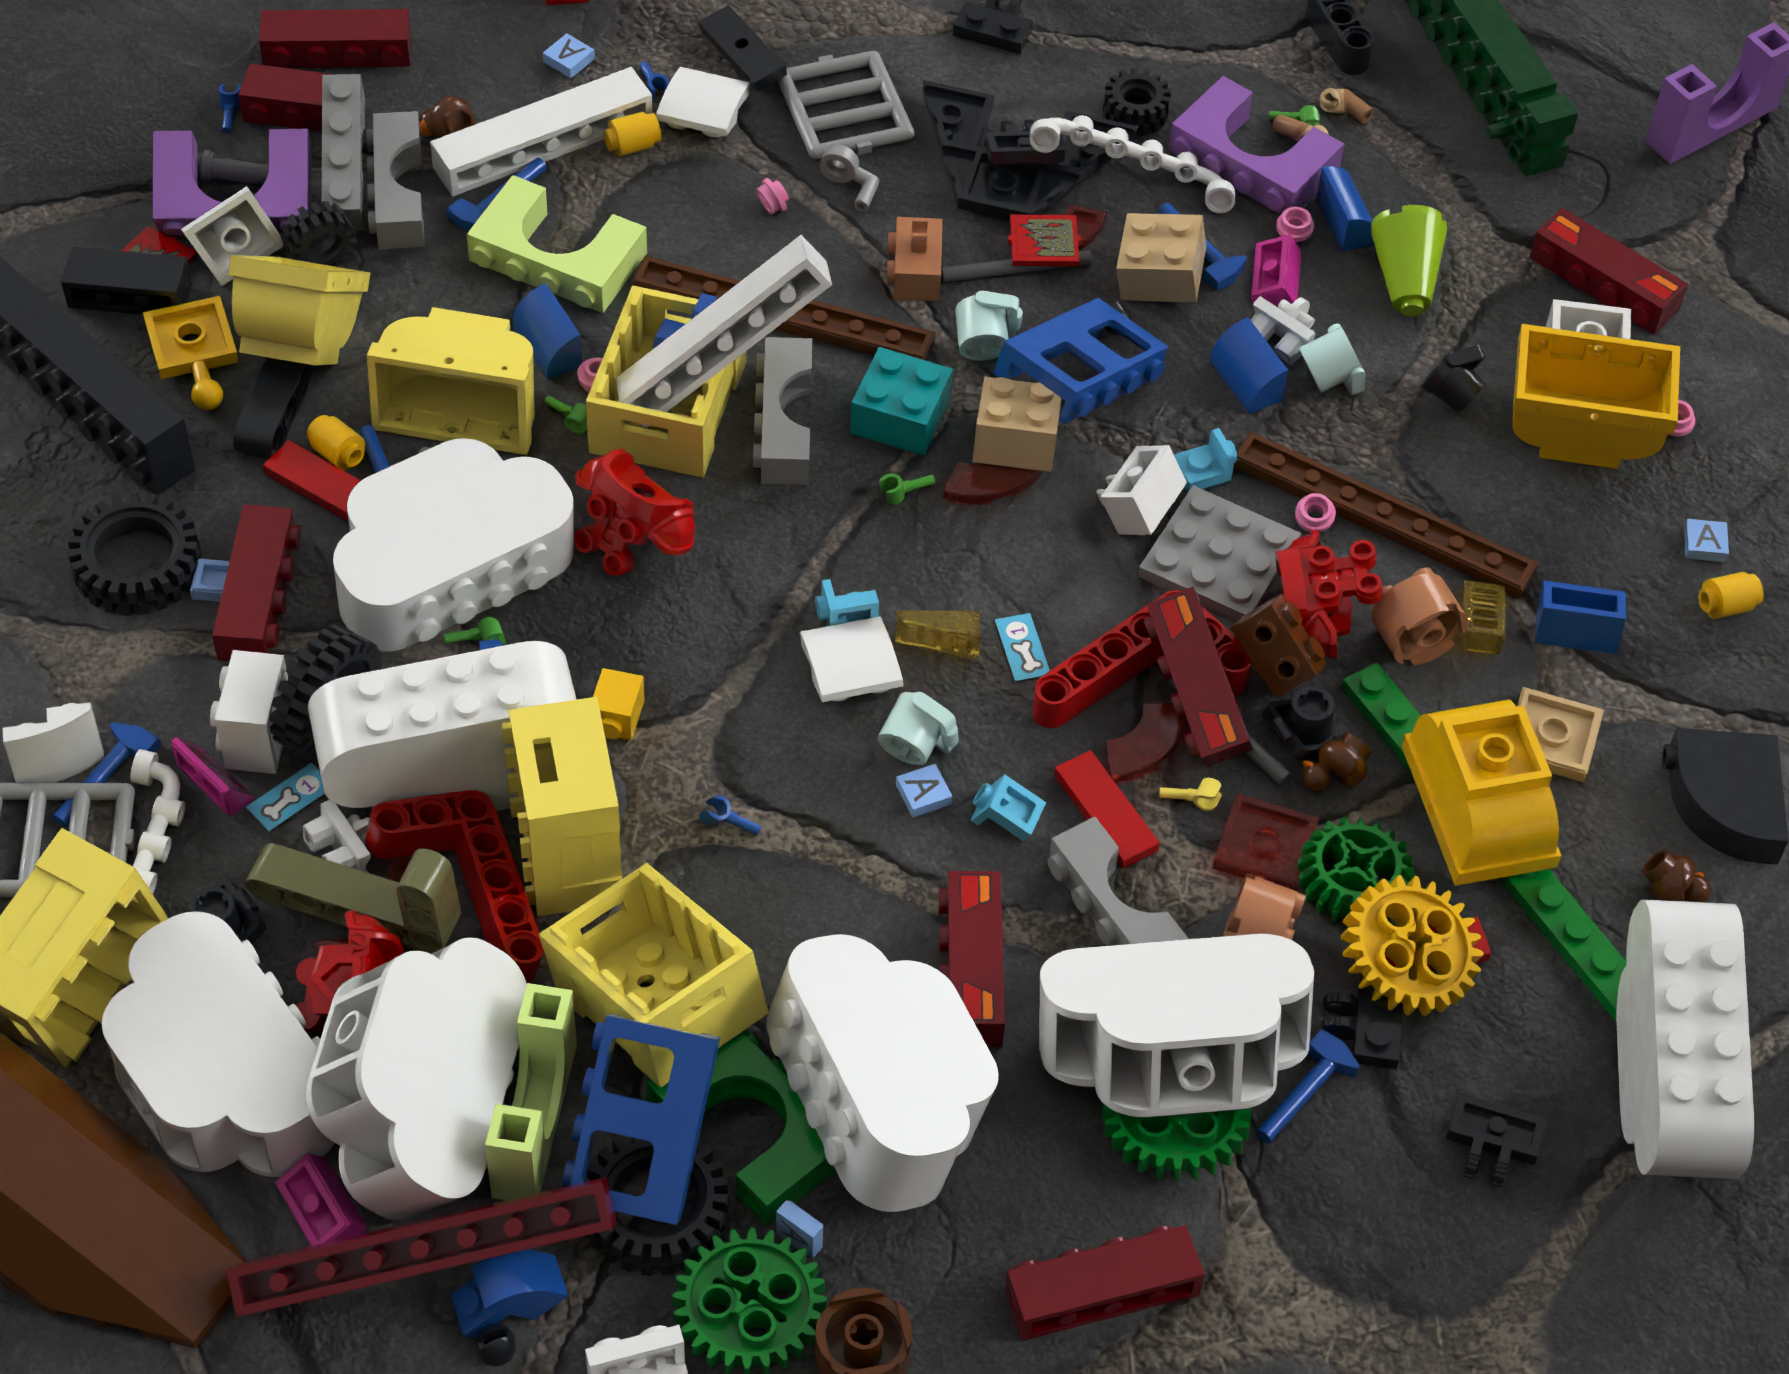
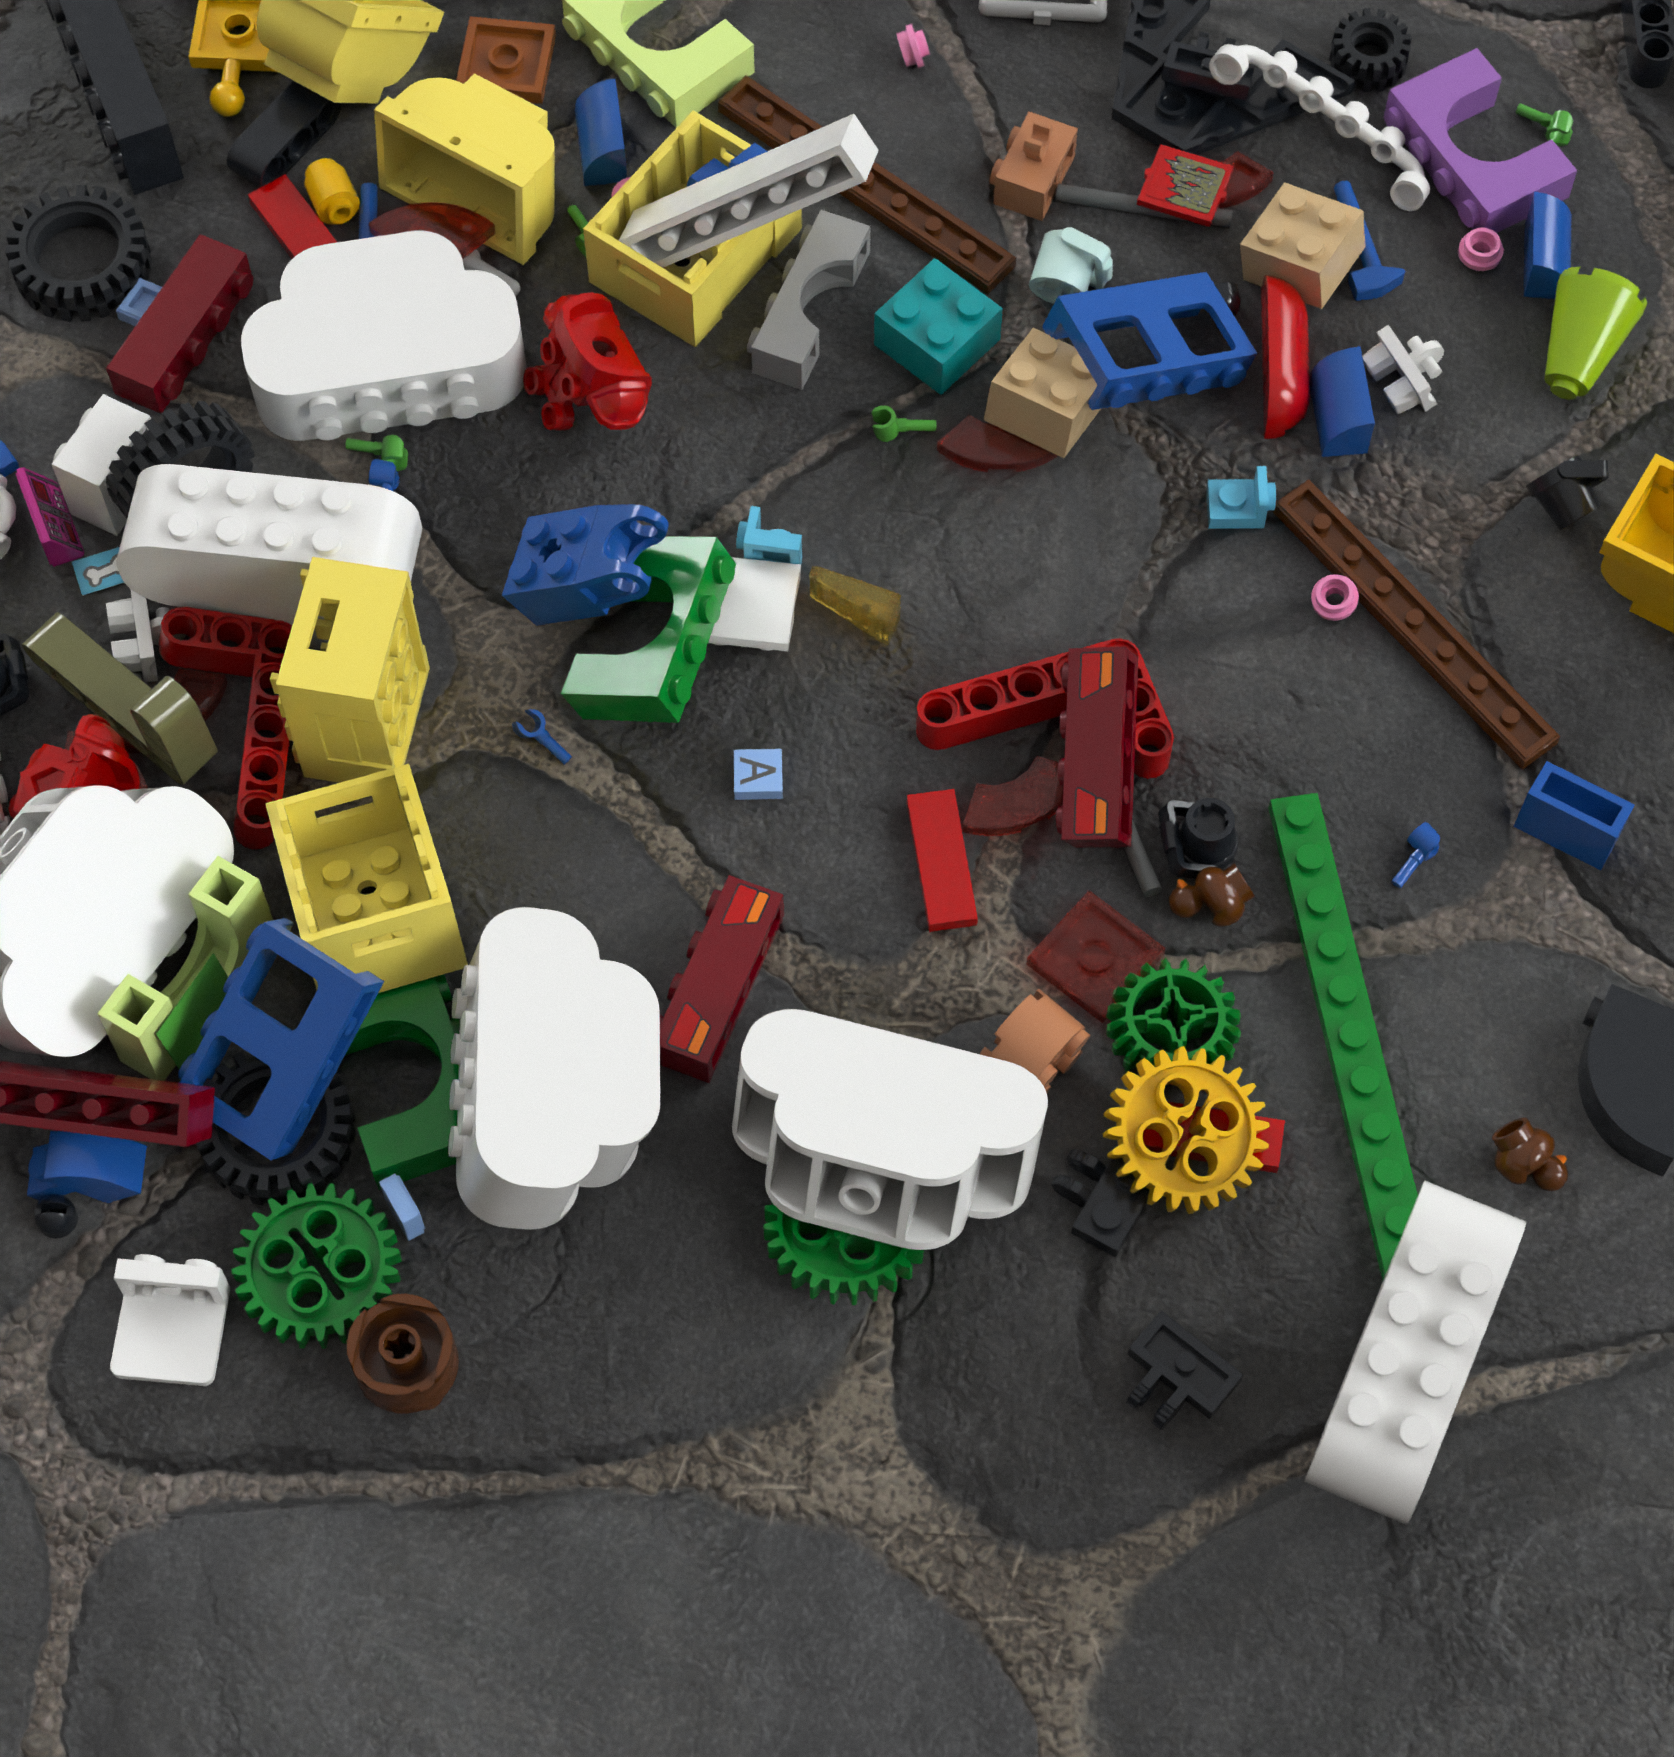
camera: 25 degrees right, 10 degrees up
(437, 286) = (509, 55): none -> dark orange plate
(437, 433) = (457, 224): none -> clear red tile
(557, 1131) = (183, 1026): none -> bright green sticker
(620, 702) = (479, 574): yellow brick -> none
(709, 662) = (582, 561): none -> blue brick
(814, 735) = (659, 677): none -> green arch
(841, 166) = (1005, 33): light grey plate -> none
(917, 727) = (774, 704): light aqua piece -> none
(1008, 806) = (835, 824): medium azure bracket -> none
(1022, 647) = (942, 646): medium azure sticker -> none
(1085, 862) = (889, 915): light grey arch -> none
(1103, 1281) = (683, 1377): dark red brick -> none
(1142, 490) = (1149, 511): white brick -> none
(1187, 348) = (1284, 356): none -> red brick
(1204, 797) = (1055, 882): light yellow hand -> none
(1219, 552) = (1206, 611): light grey plate -> none
(1276, 270) = (1434, 299): dark pink slope -> none
(1279, 645) = (1205, 740): reddish brown brick -> none
(1293, 128) = (1537, 134): medium nougat arm -> none
(1323, 585) = (1276, 683): red piece -> none
(1331, 1056) = (1049, 1220): blue piece -> none
(1334, 361) = (1437, 426): light aqua piece -> none
(1345, 102) = (1612, 118): arm -> none
(1419, 617) = (1381, 758): nougat brick -> none
(1477, 674) = (1426, 843): none -> blue hand
(1482, 638) = (1452, 804): clear yellow slope -> none
(1485, 790) = (1348, 986): yellow container -> none
(1563, 730) = (1478, 940): tan tile -> none

